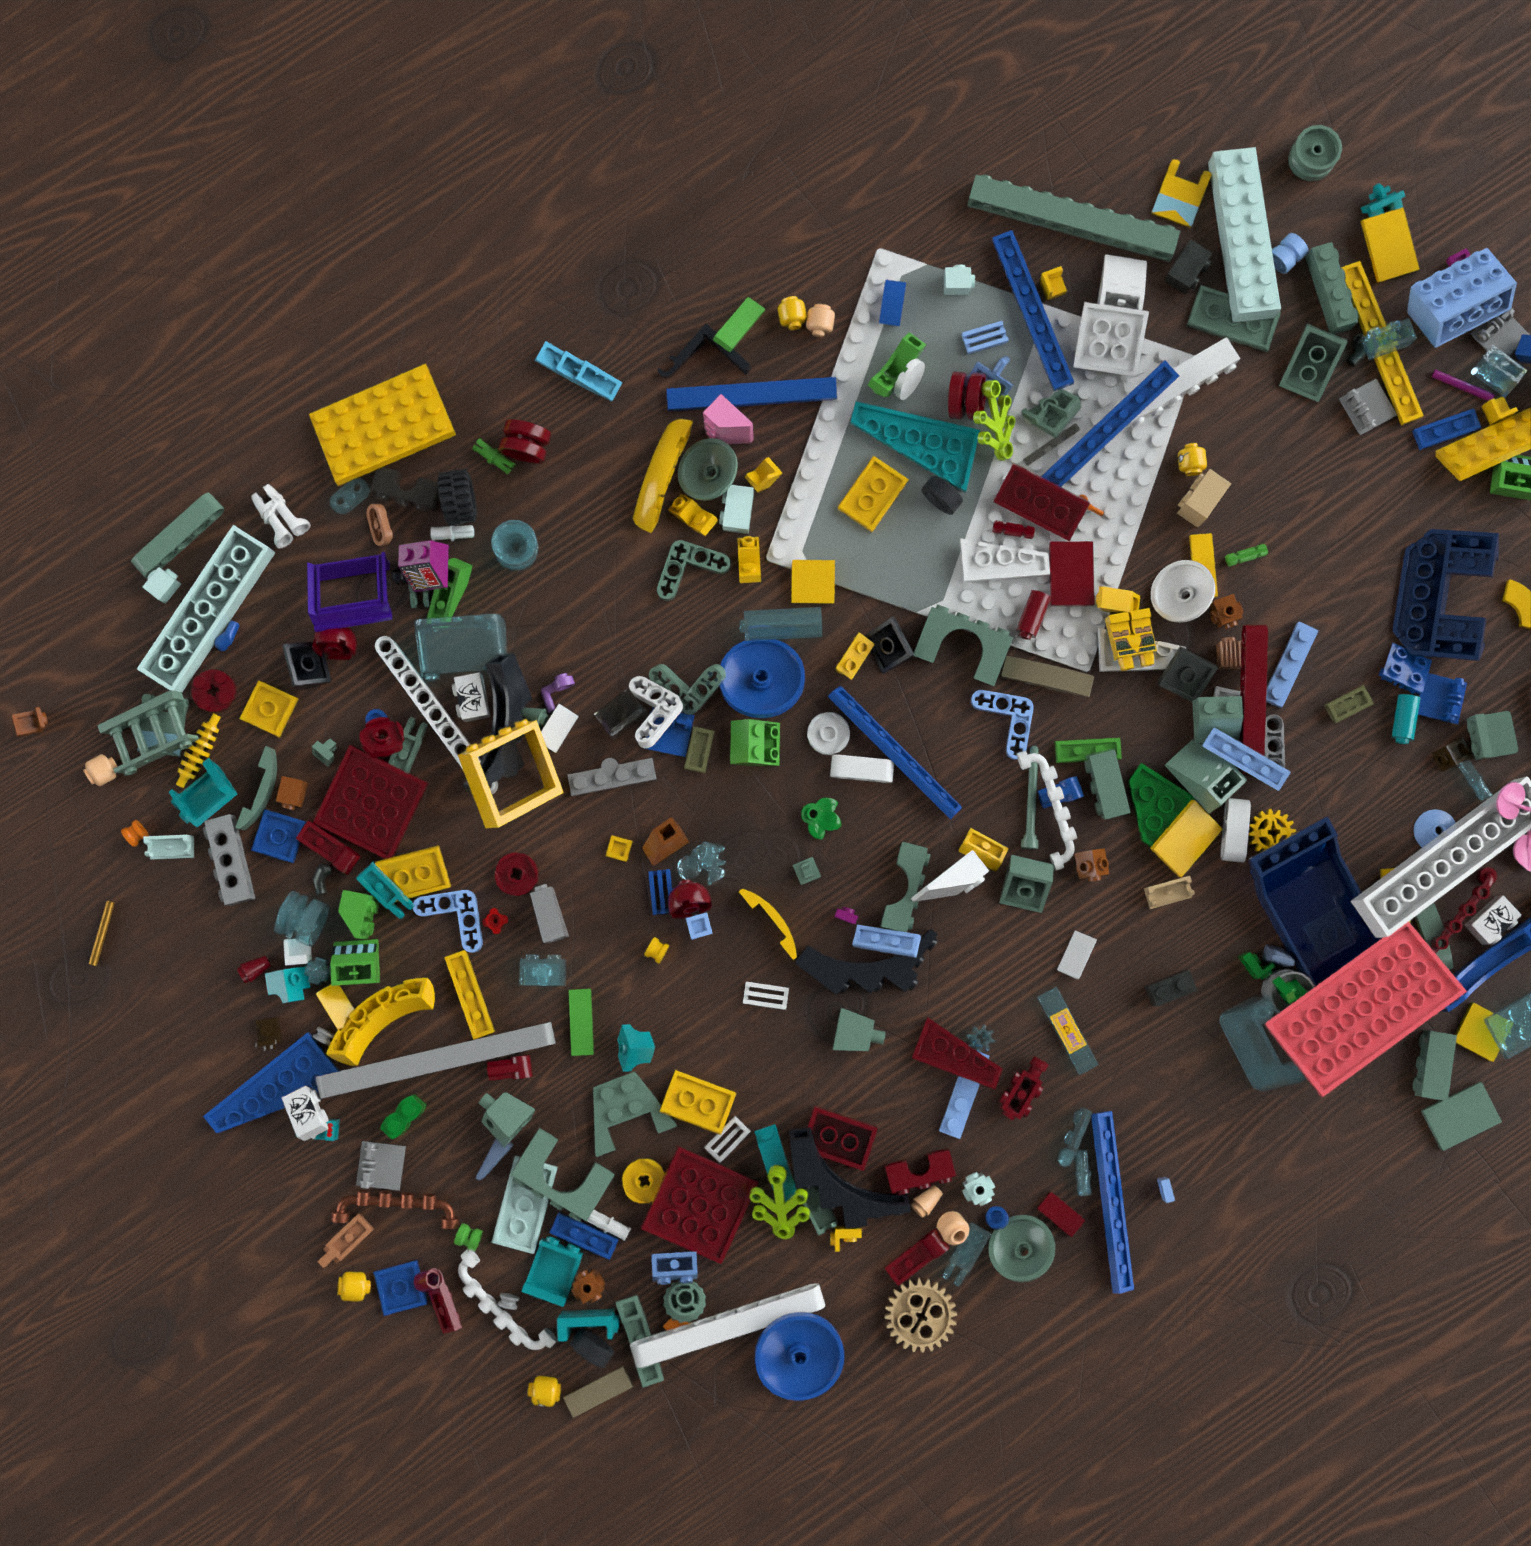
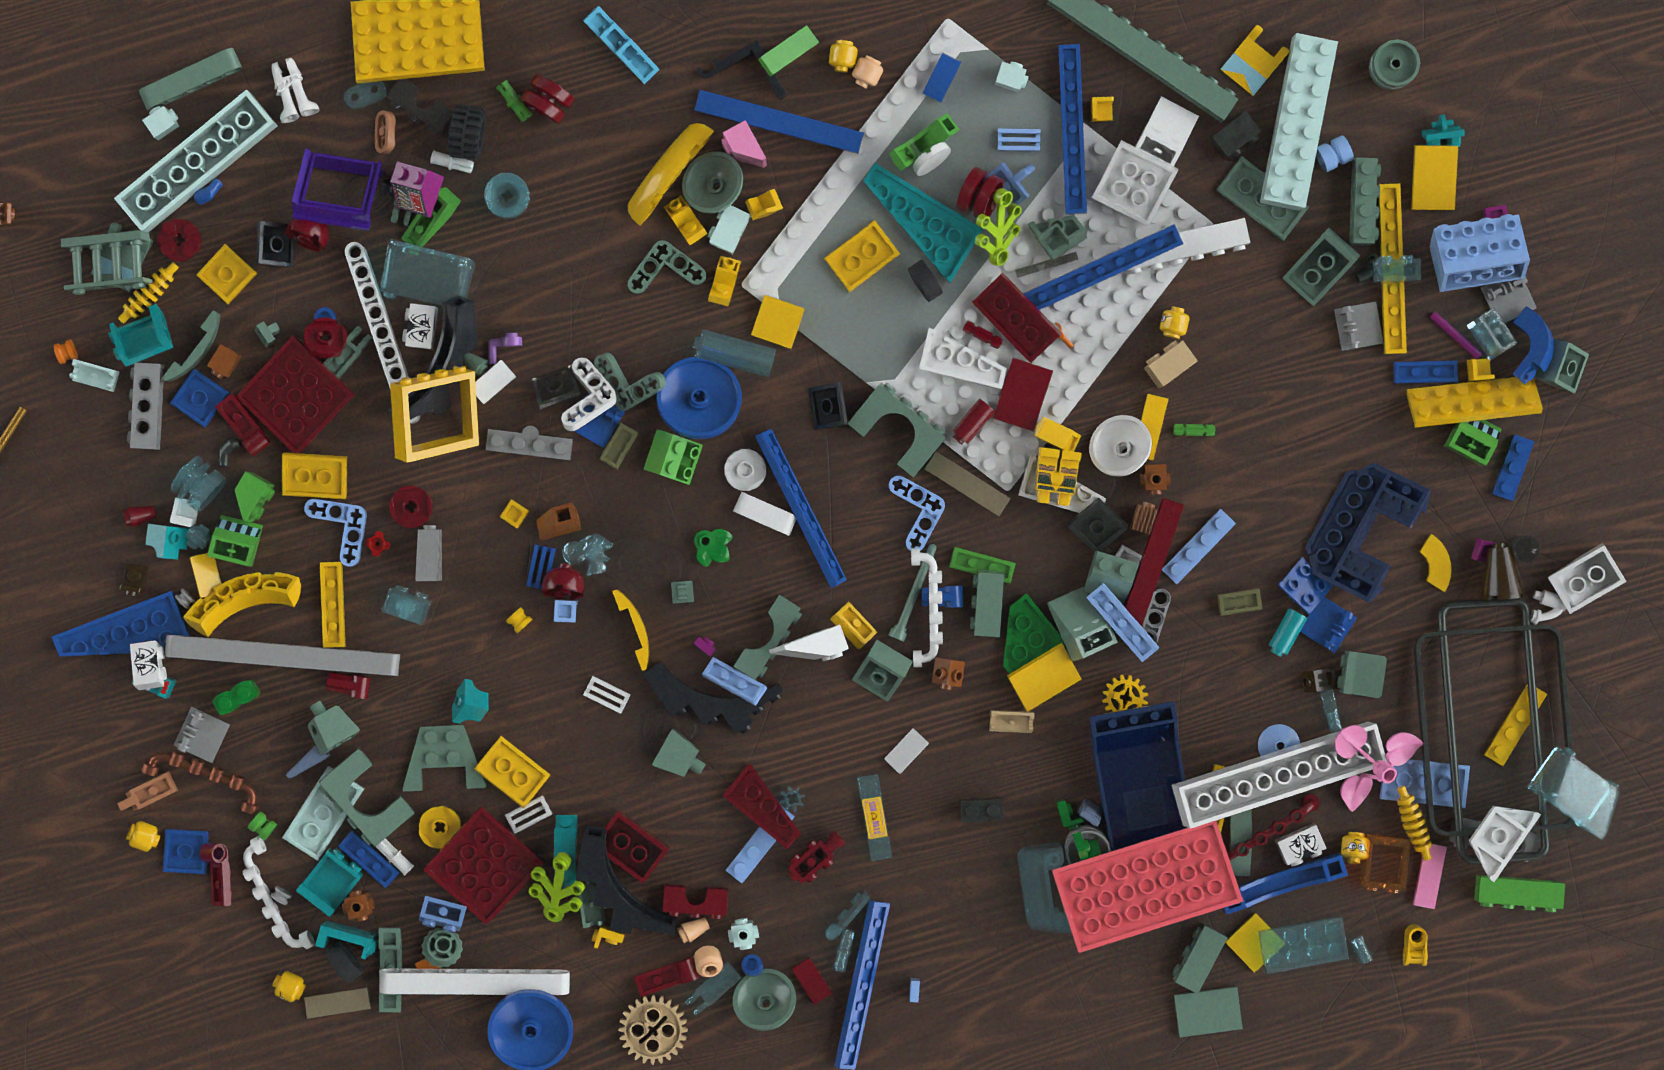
camera: 15 degrees right, 5 degrees up
(100, 770) = (50, 281): light nougat head -> none
(384, 890) = (283, 482): teal hinge -> none
(581, 1022) = (428, 663): bright green tile -> none
(854, 656) = (793, 405): yellow hinge -> none
(1235, 830) = (1092, 684): white beam -> none

